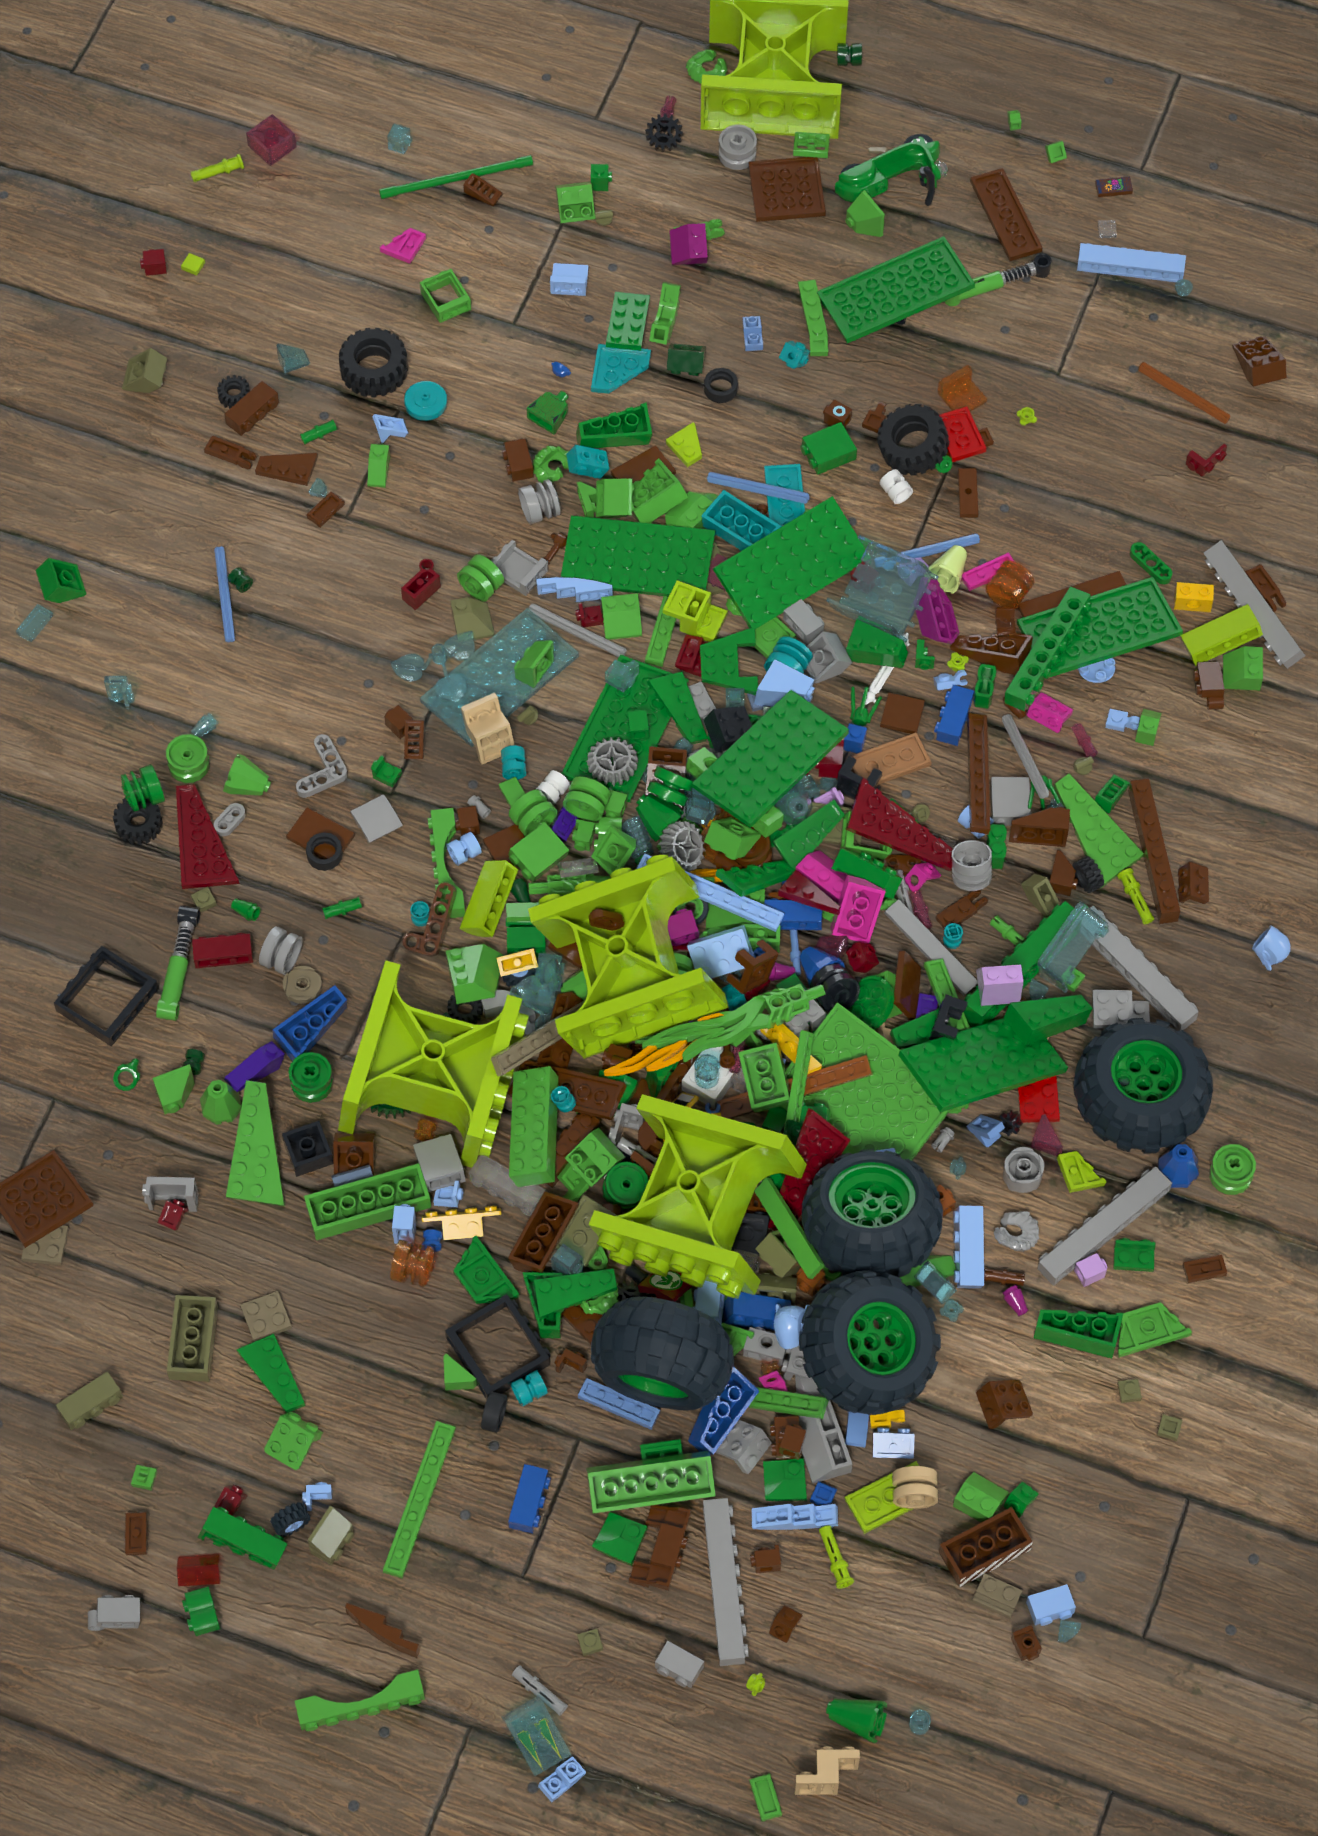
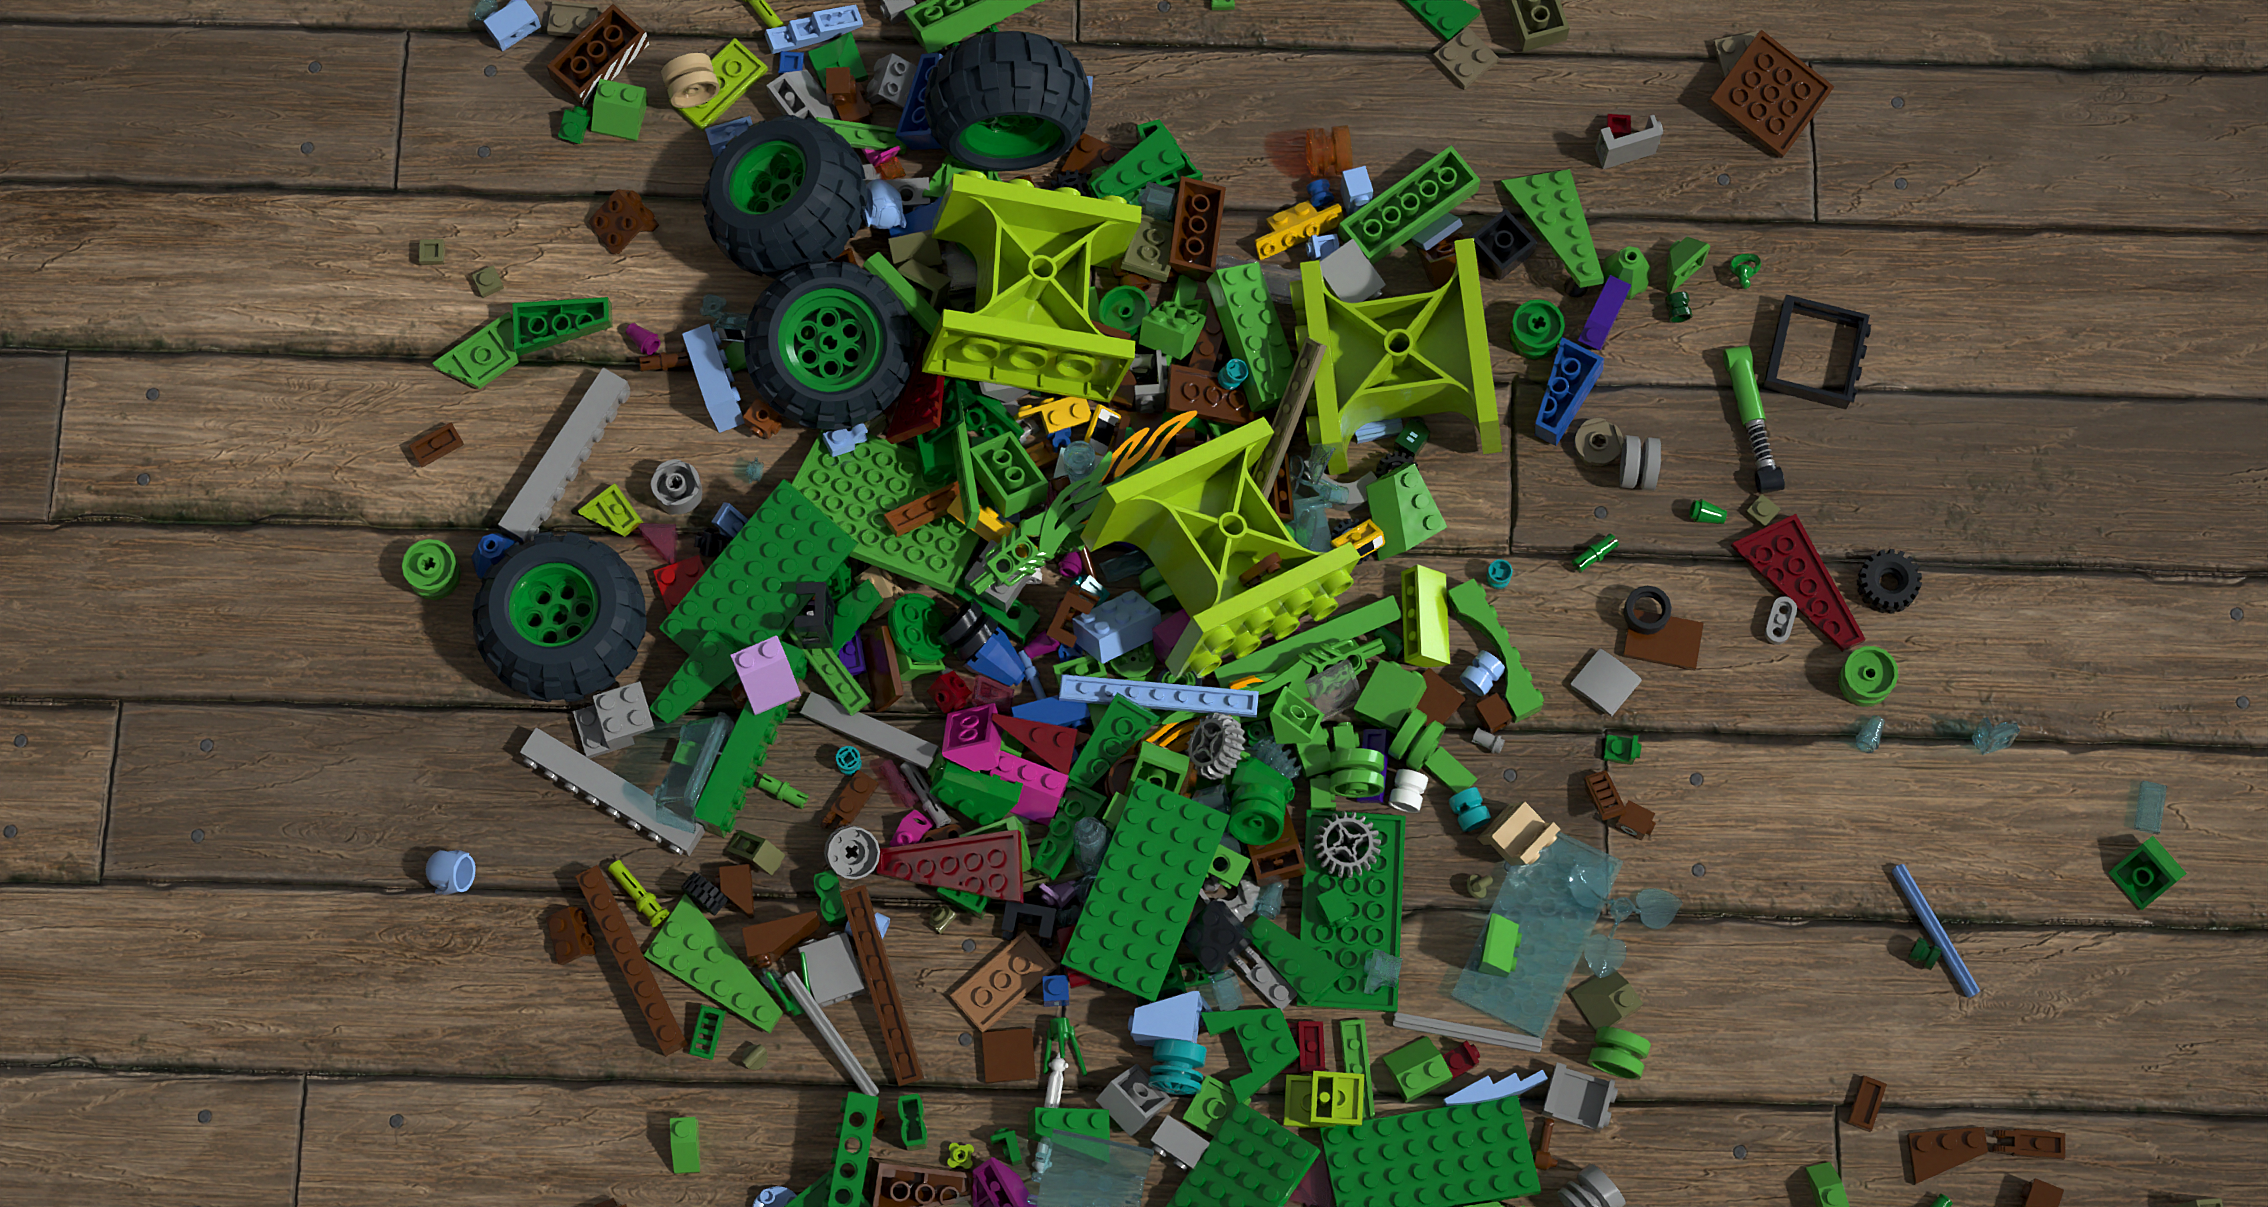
camera: 160 degrees right, 10 degrees up
(142, 788) = (1898, 595): green wheel -> none
(222, 950) = (1709, 451): dark red brick -> none
(246, 778) = (1785, 674): bright green cone -> none
(318, 489) = (1888, 1129): clear light blue tile -> none
(328, 773) = (1690, 725): light grey beam -> none
(422, 585) = (1690, 1020): dark red hinge -> none
(434, 918) = (1472, 539): reddish brown beam -> none
(456, 1376) = (1232, 56): bright green slope -> none
(469, 1363) = (1220, 72): black window -> none
(482, 1275) = (1248, 174): green wing -> none
(494, 1412) = (1174, 25): black tyre -> none
(525, 938) = (1368, 580): green brick -> none
(529, 1388) = (1144, 69): teal wheel -> none
(574, 1360) = (1113, 113): reddish brown bracket -> none
(946, 681) = (965, 1118): light blue plate -> none
(954, 715) = (940, 1071): blue brick -> none
(1029, 1231) = (648, 413): light grey piece -> none
(1049, 712) = (816, 1120): dark pink bracket -> none
(1084, 740) = (763, 1094): clear pink axle -> none
(1090, 1269) = (565, 399): lavender brick -> none
(1119, 720) = (727, 1142): light blue plate -> none
(1134, 1255) = (522, 435): green bracket -> none

